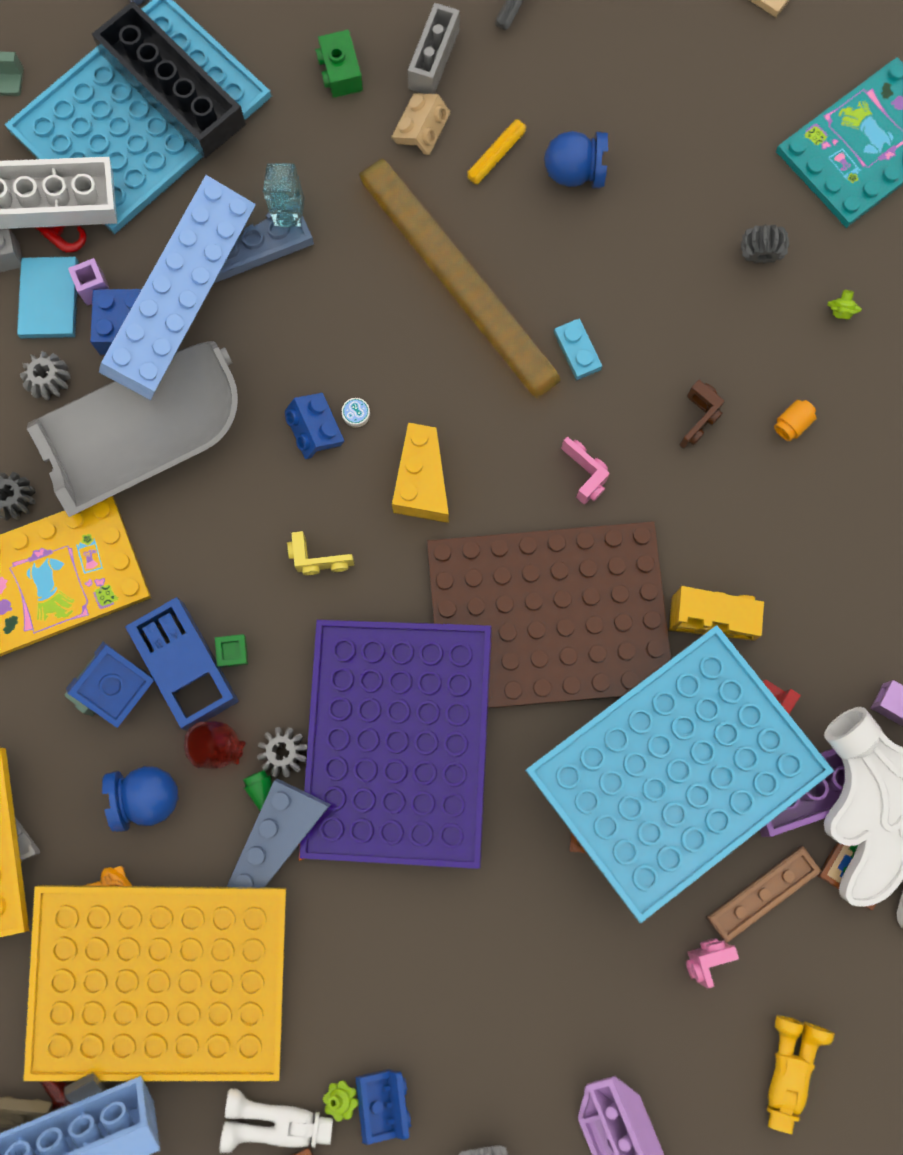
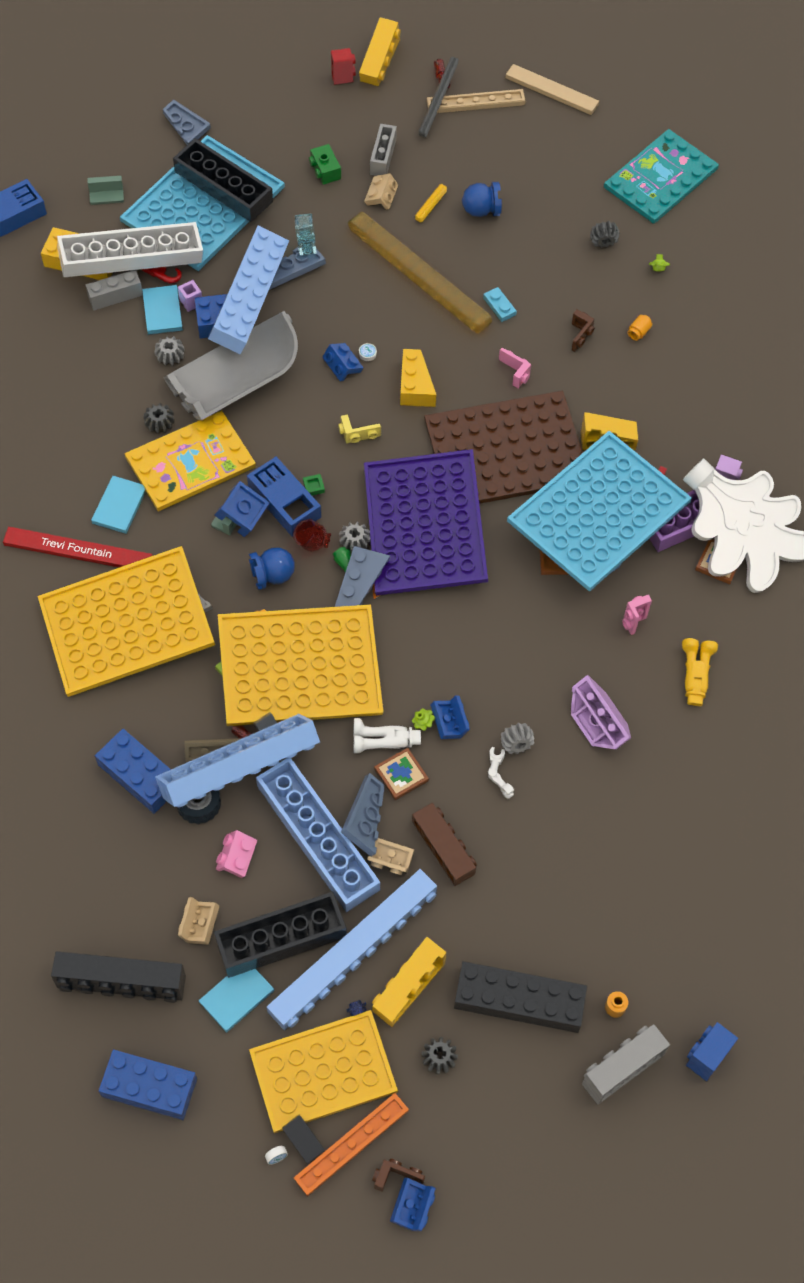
camera: 10 degrees left, 15 degrees down
(763, 894) = (667, 579): medium nougat tile -> none

